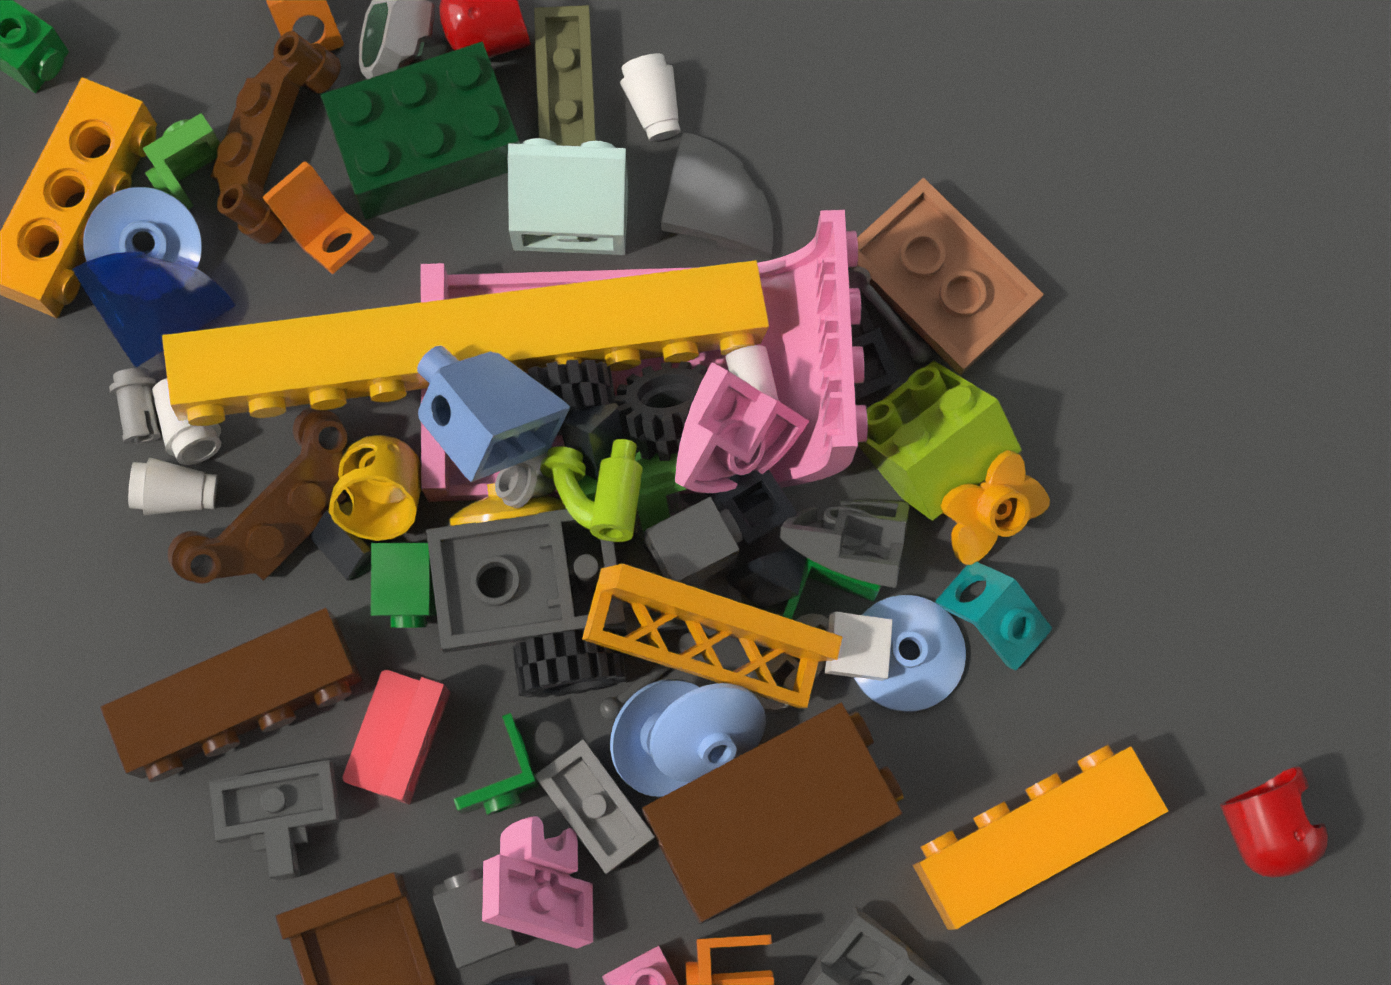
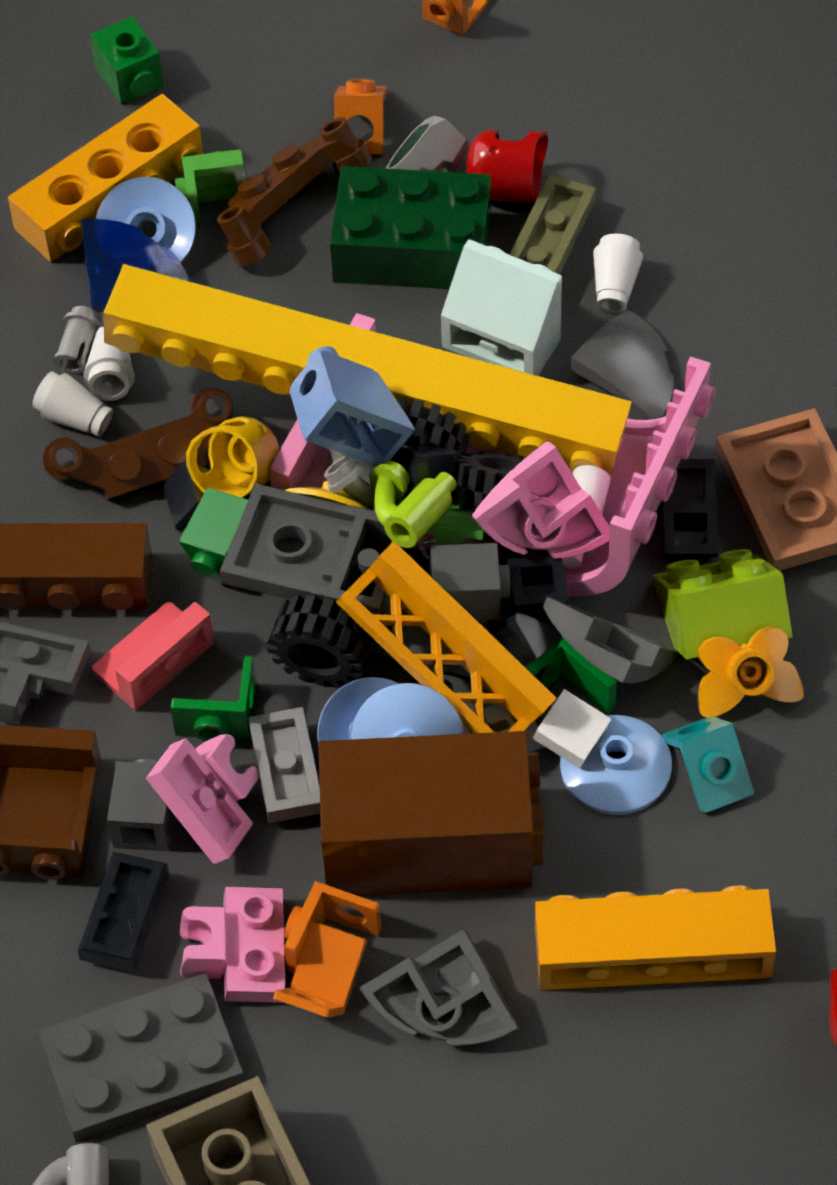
camera: 30 degrees right, 20 degrees down
(316, 217) = (291, 254): orange bracket -> none
(860, 278) = (718, 460): dark grey hinge -> none

